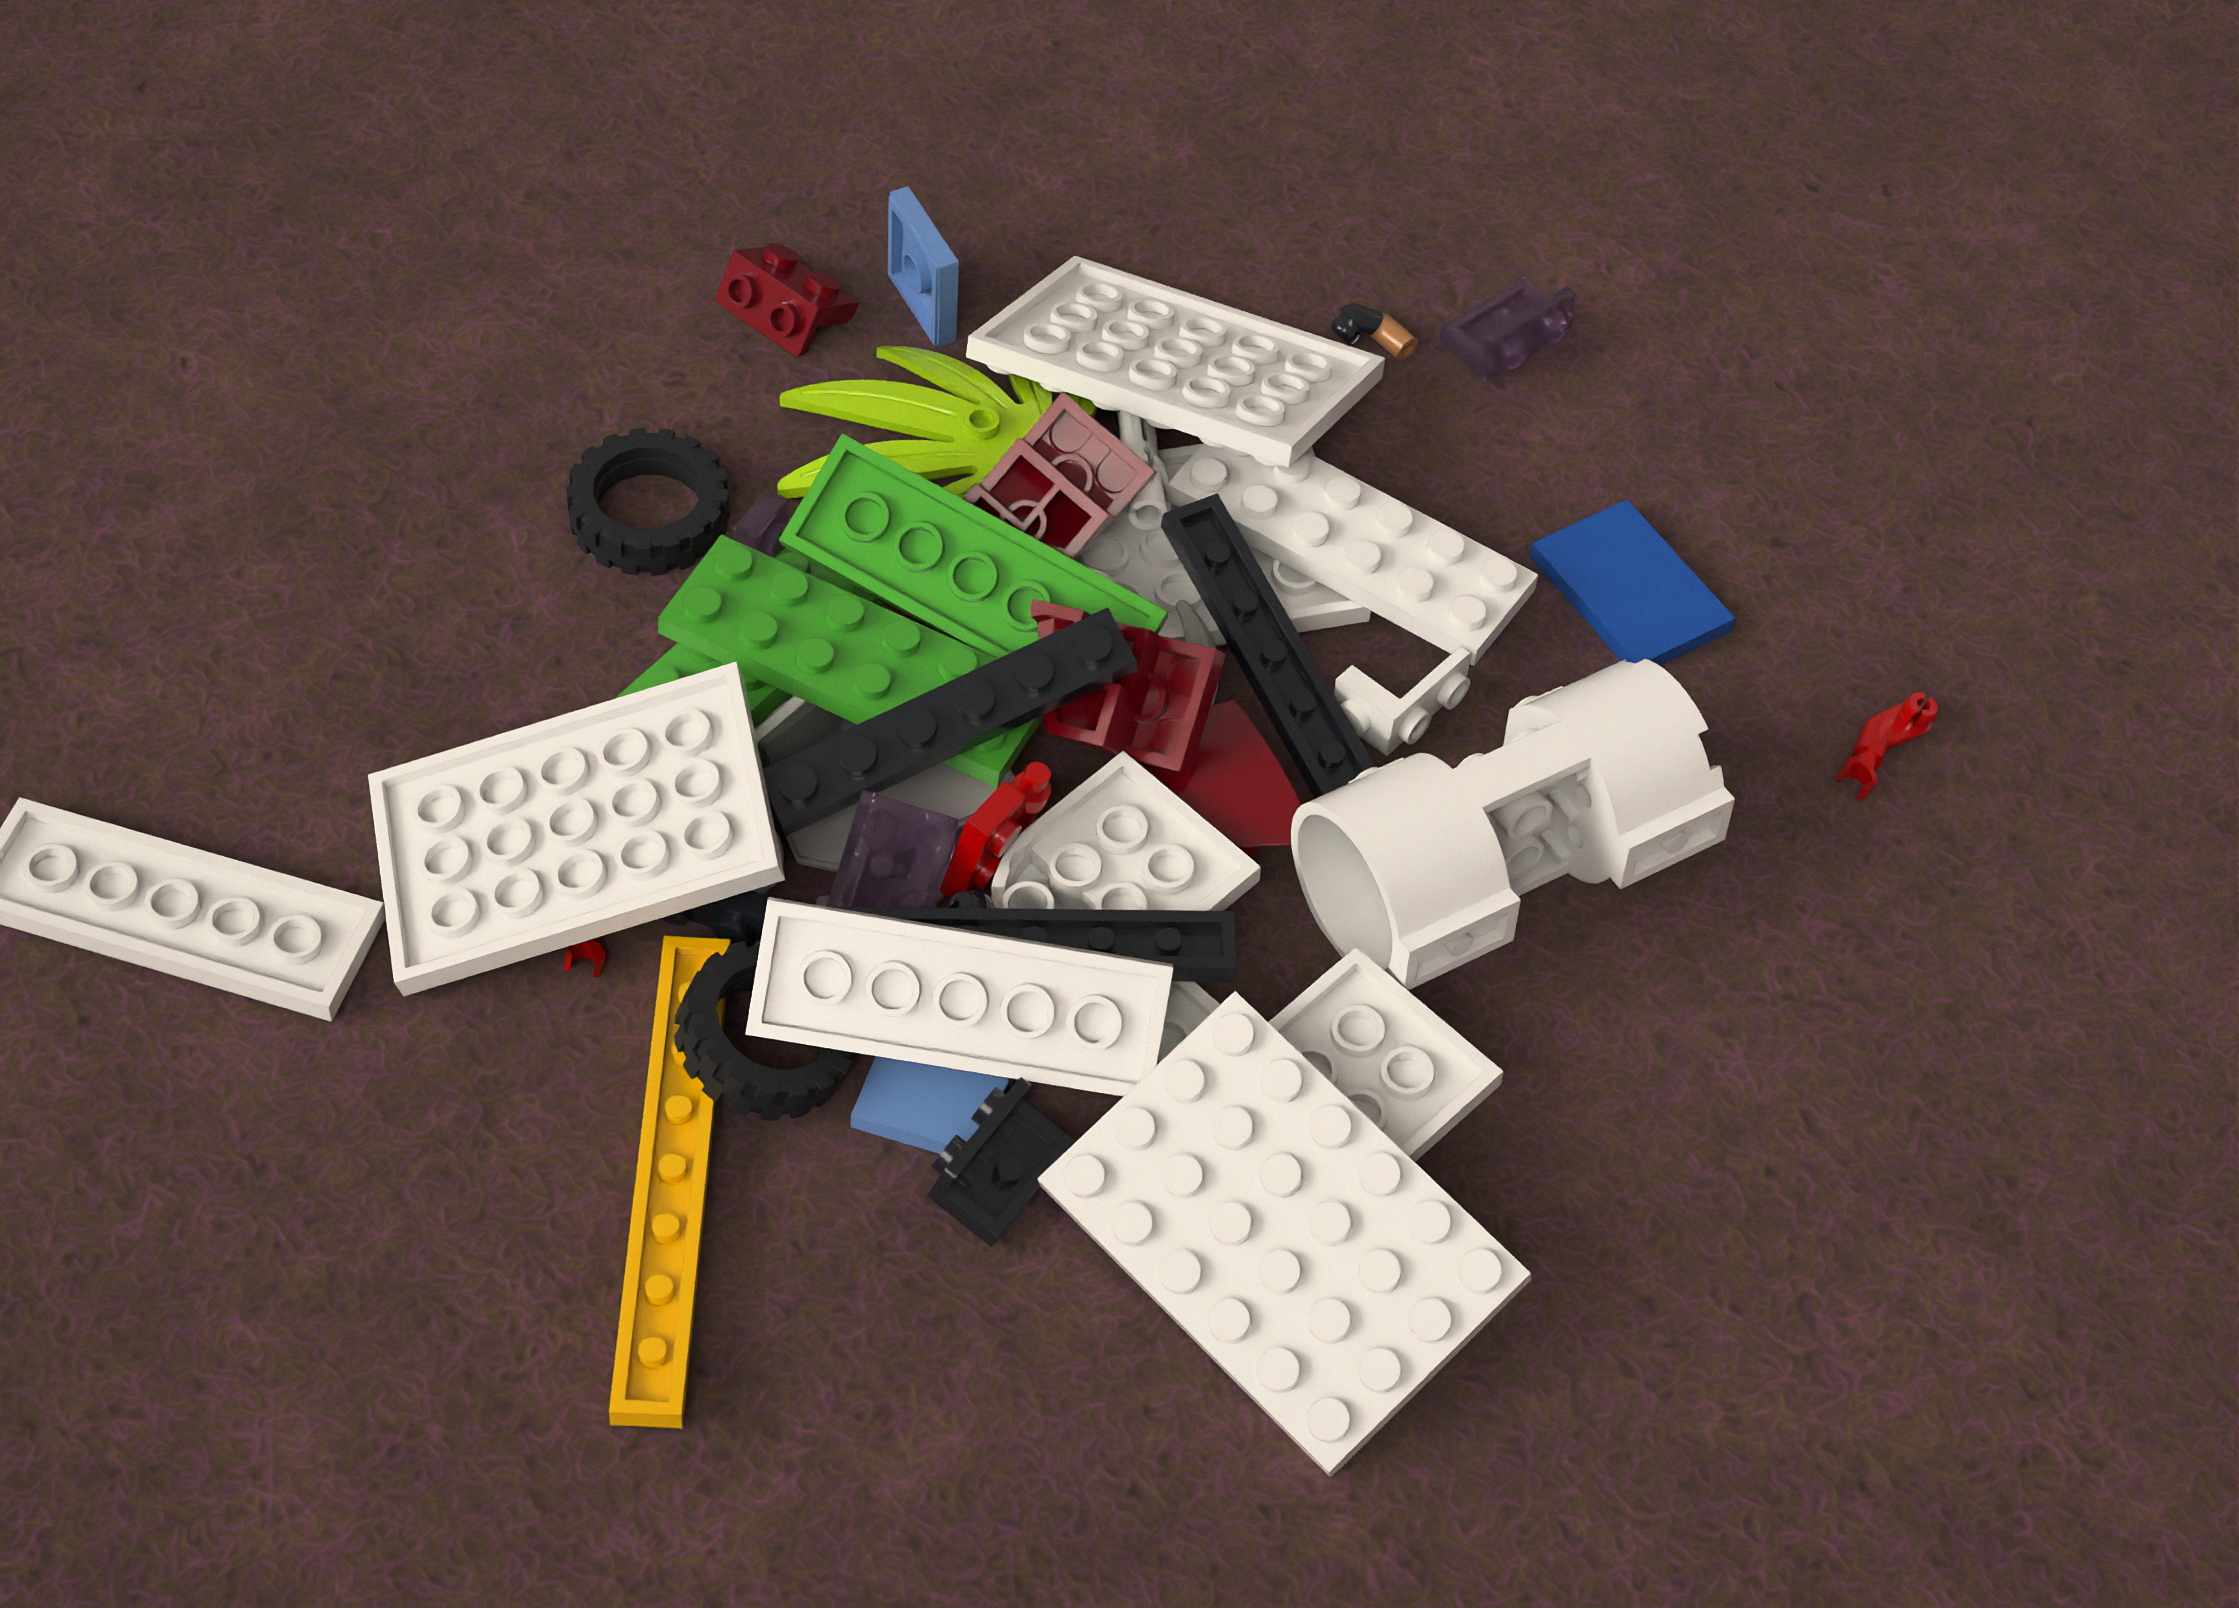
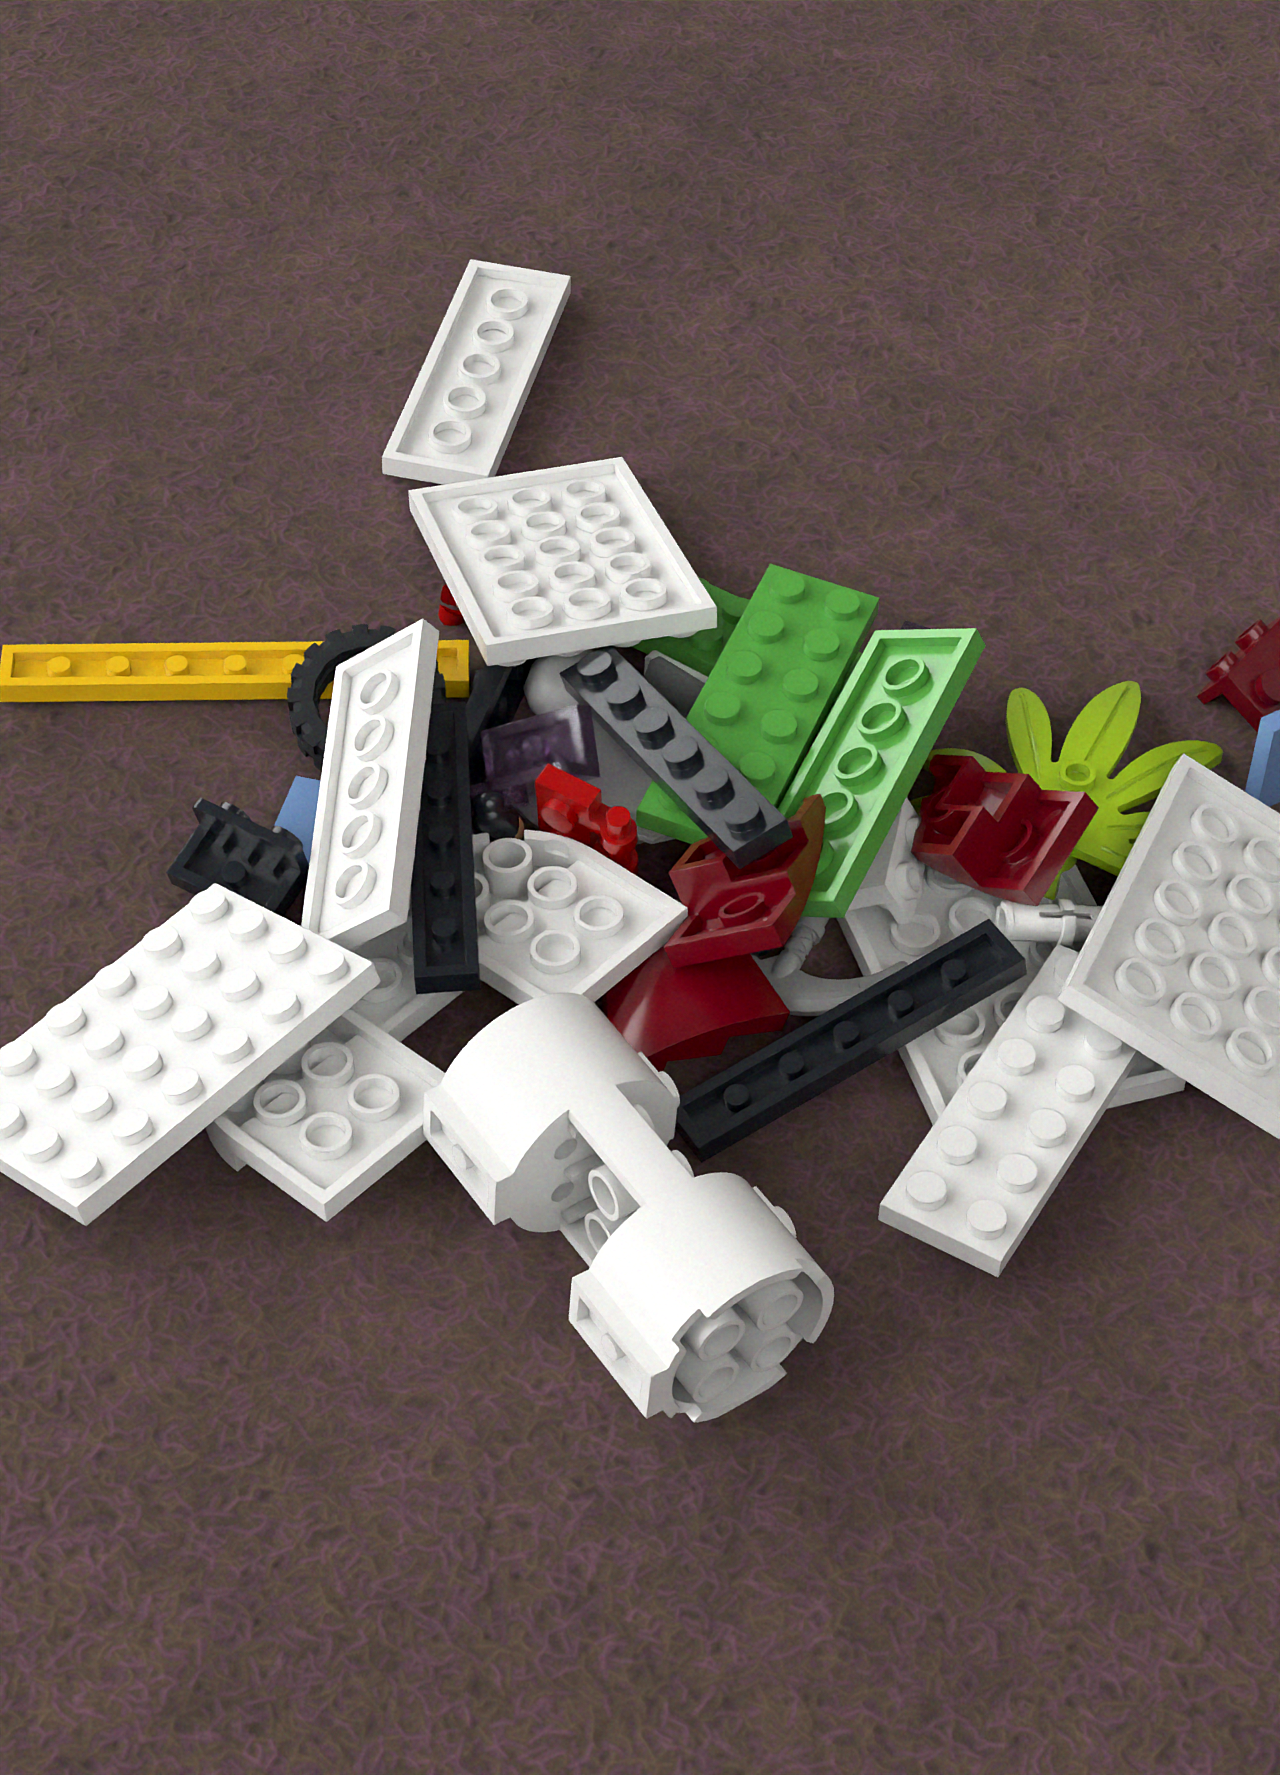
camera: 90 degrees right, 5 degrees down
(647, 548) = (982, 562): black tyre -> none
(1389, 721) = (804, 1167): white bracket -> none
(1631, 586) = (1042, 1389): blue tile -> none
(1884, 732) = (867, 1630): red arm -> none

